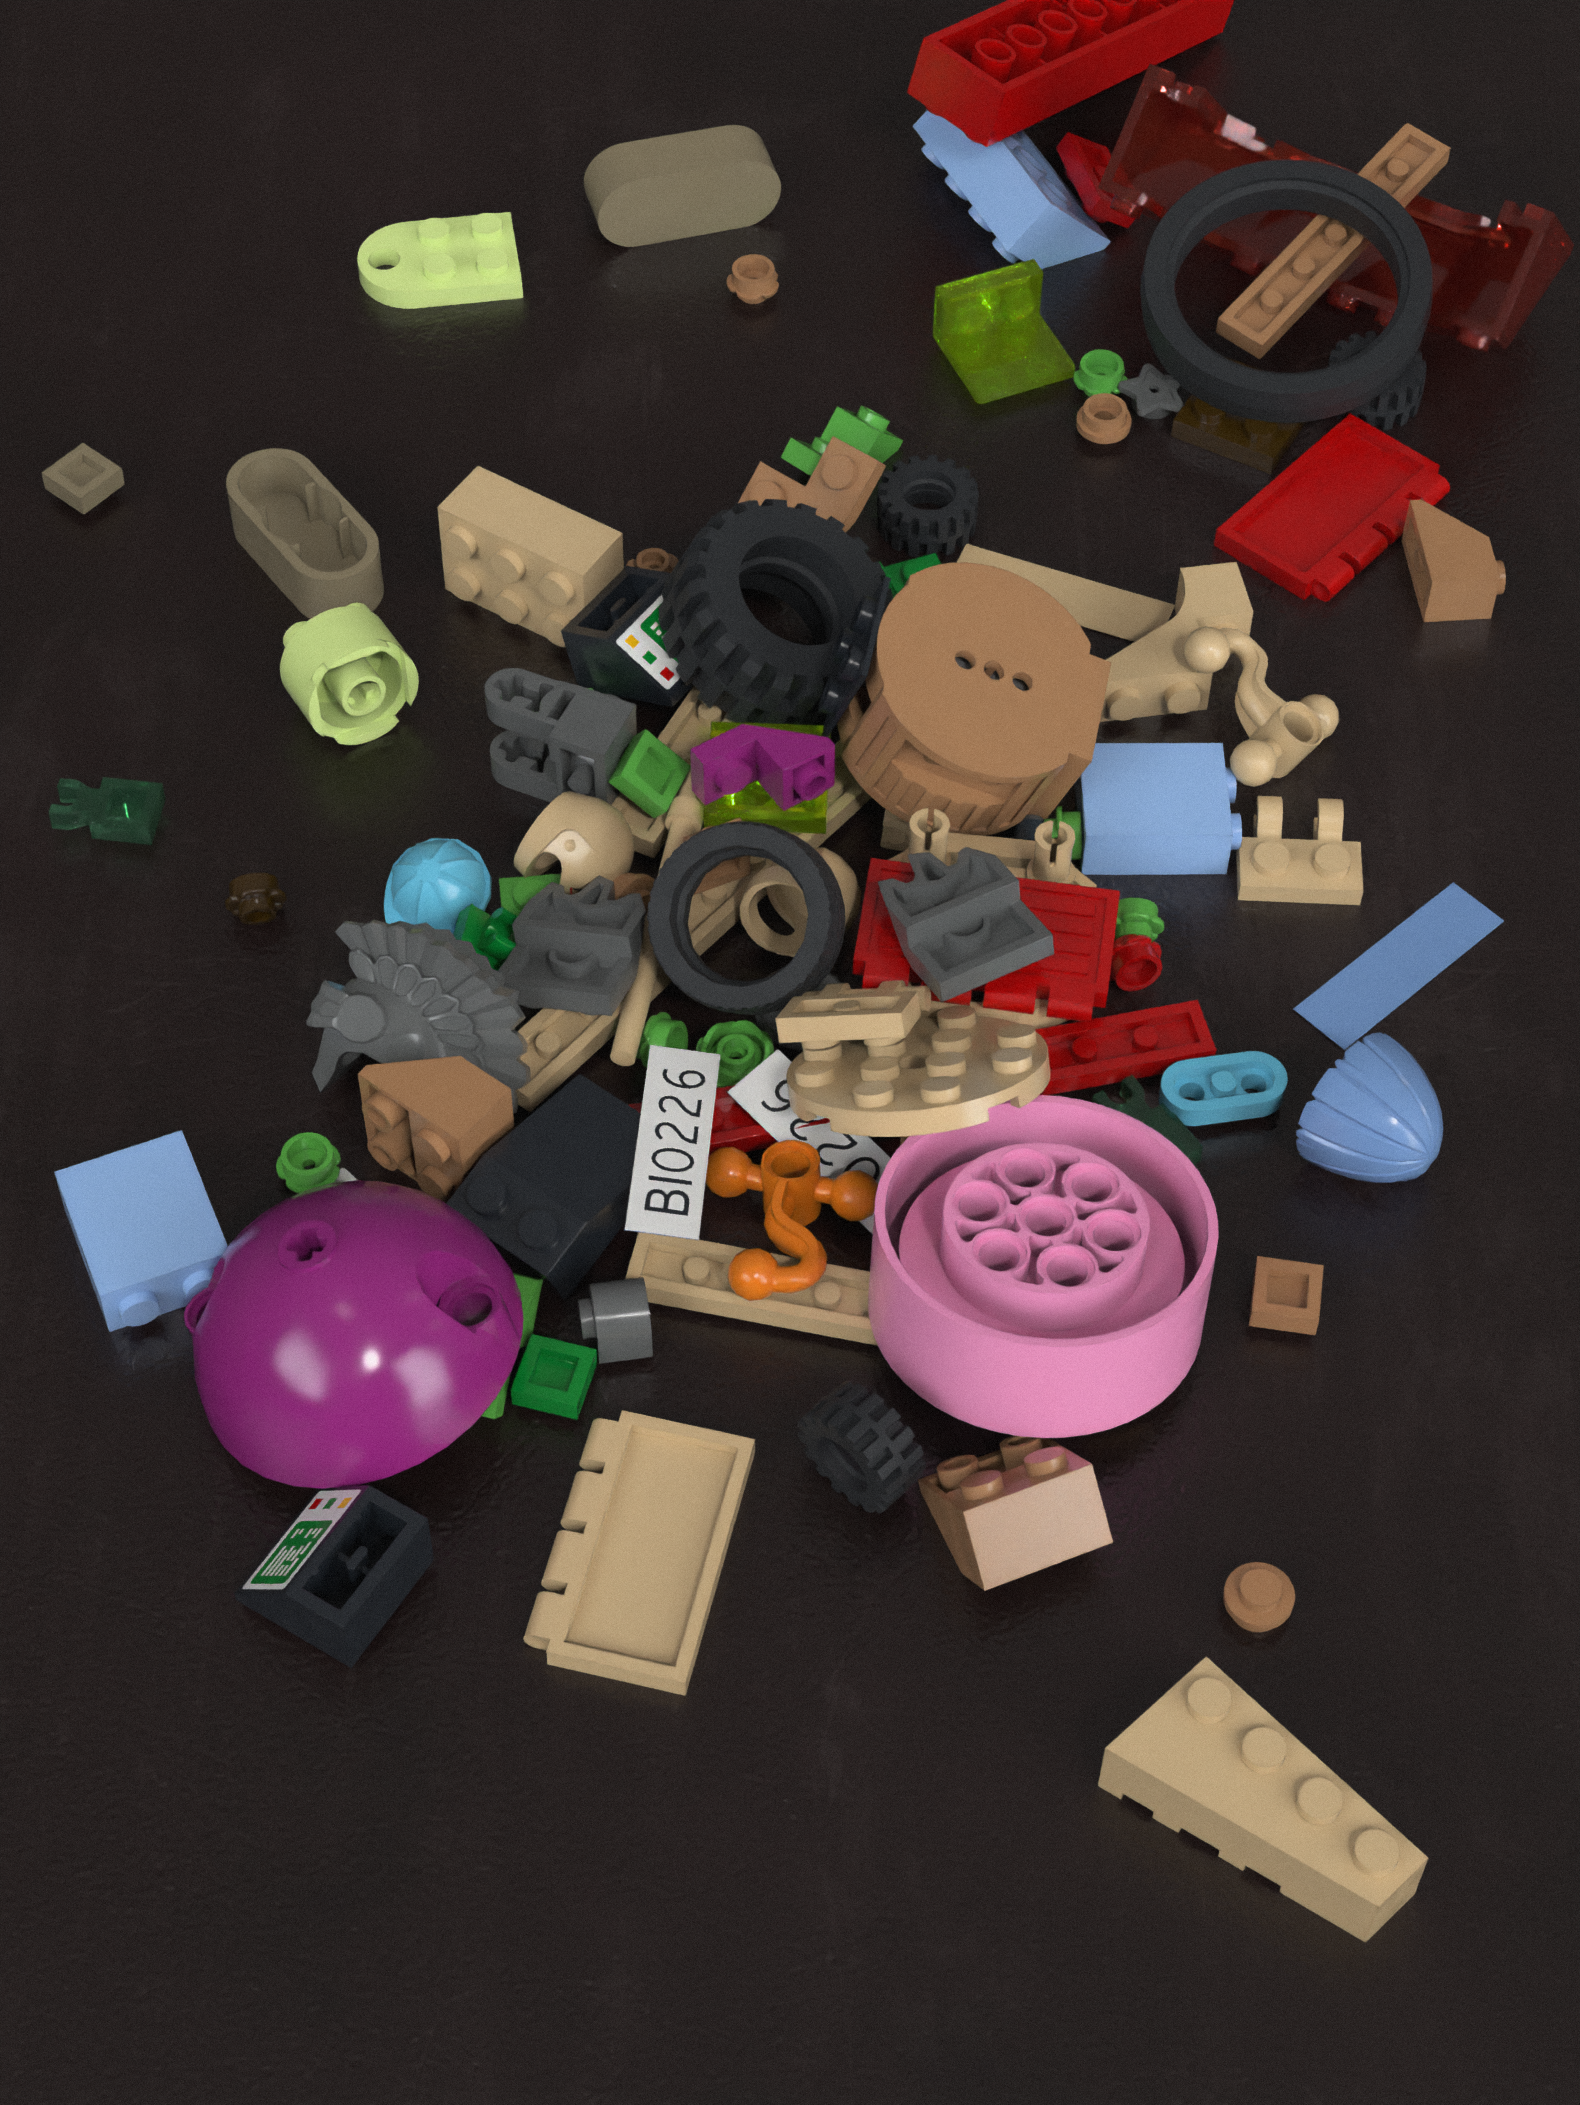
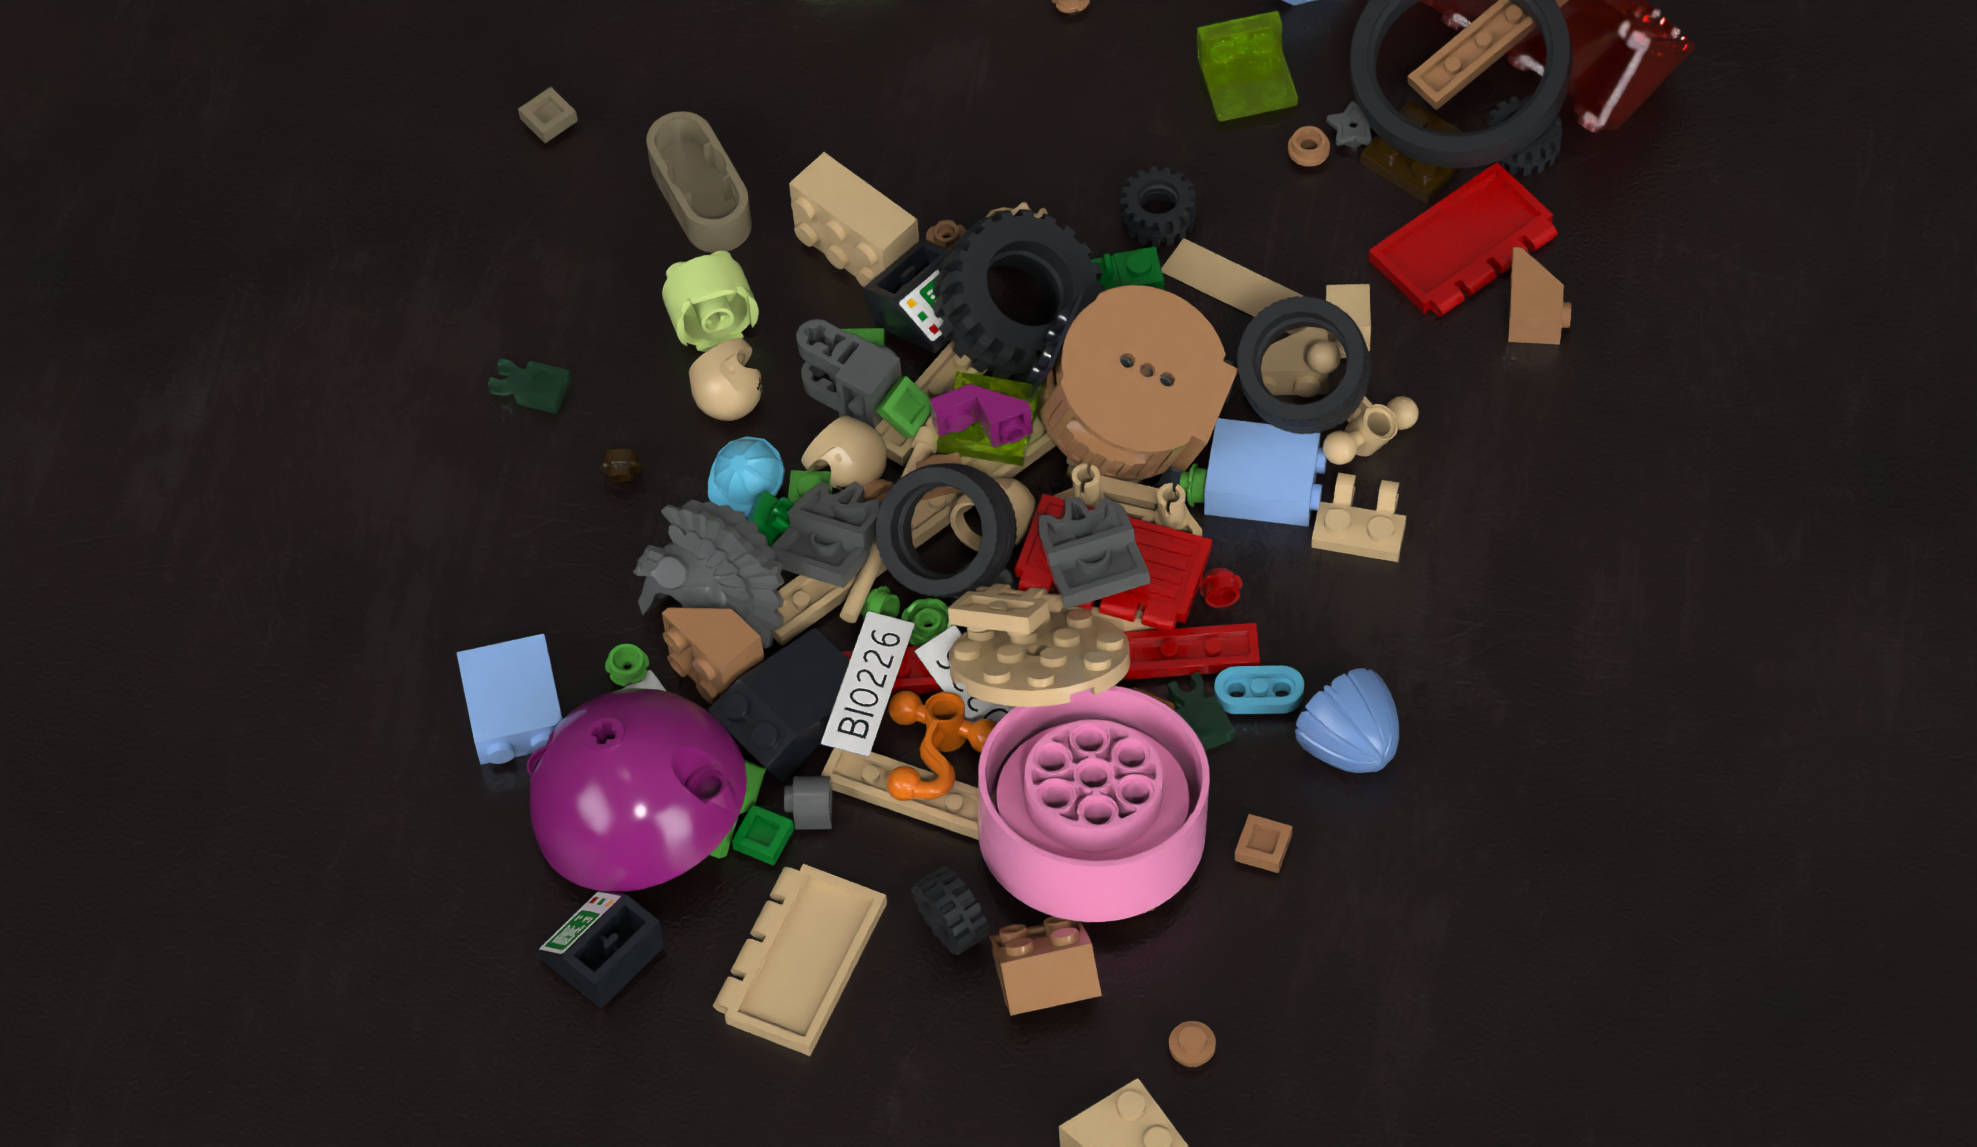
camera: 15 degrees right, 5 degrees up
(385, 773) = (722, 382): none -> tan helmet
(836, 487) = (1074, 200): medium nougat plate -> none
(860, 430) = (1110, 152): bright green slope -> none
(1100, 372) = (1315, 99): bright green plate -> none
(1139, 918) = (1229, 556): bright green plate -> none
(1206, 585) = (1290, 315): none -> black tyre
(1398, 965) = (1413, 611): medium blue sticker -> none

